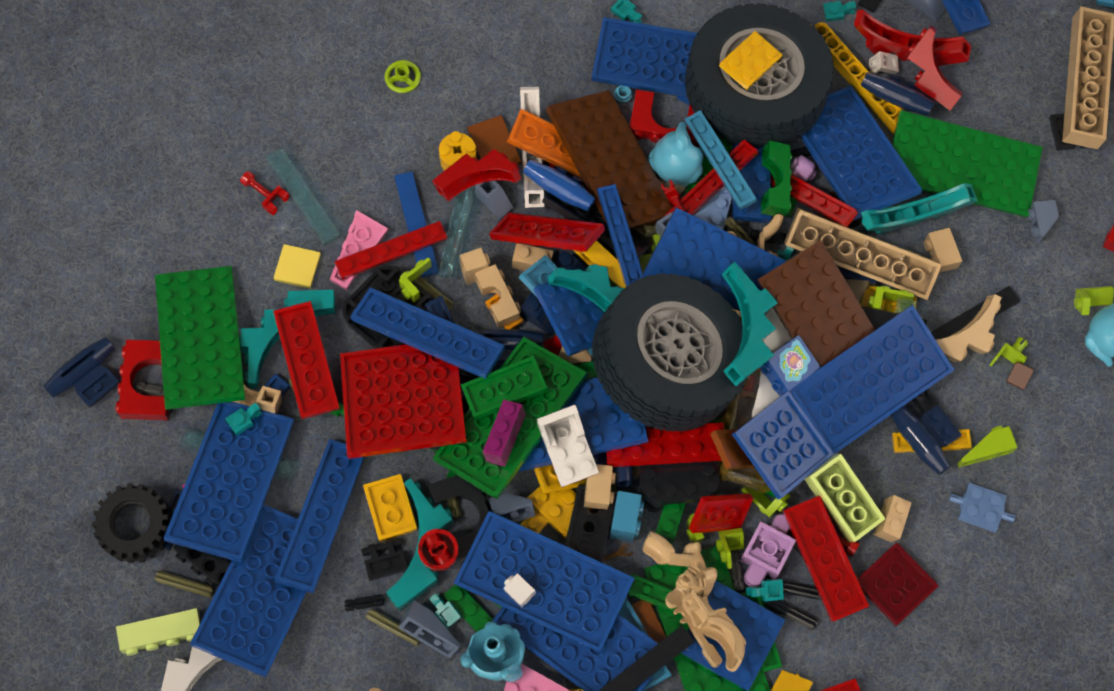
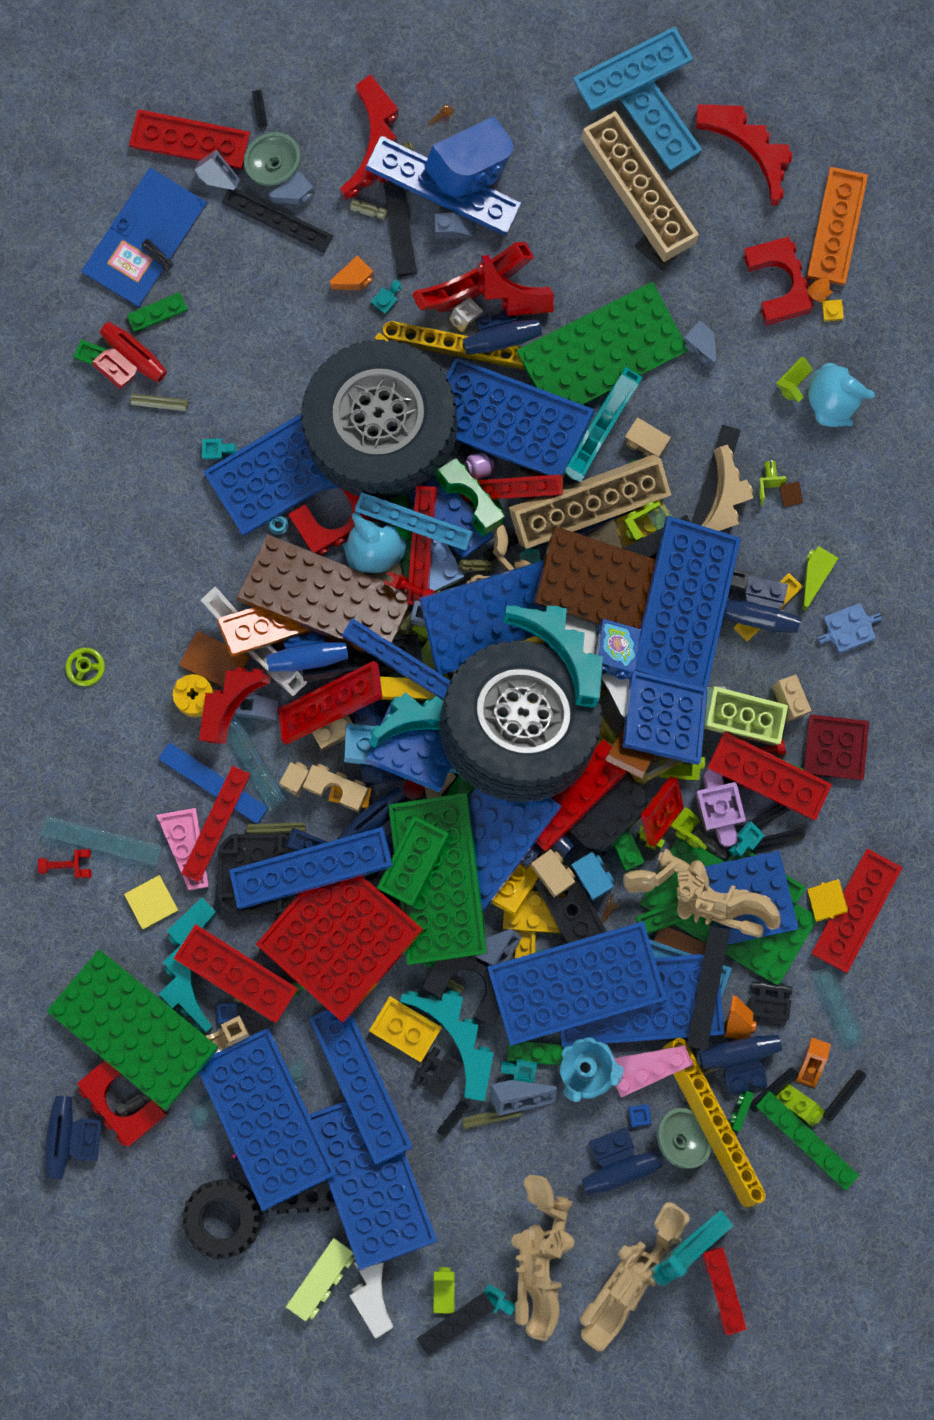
camera: 35 degrees left, 10 degrees up
(184, 584) = (303, 1228): olive axle -> none
(241, 420) = (230, 1067): teal plate -> none
(408, 289) = (262, 845): lime bracket -> none
(438, 549) = (477, 1031): red brick -> none
(504, 433) = (448, 898): magenta brick -> none
(519, 589) = (566, 1008): white brick -> none
(567, 445) = (506, 866): white bracket -> none
(750, 60) = (368, 417): yellow plate -> none

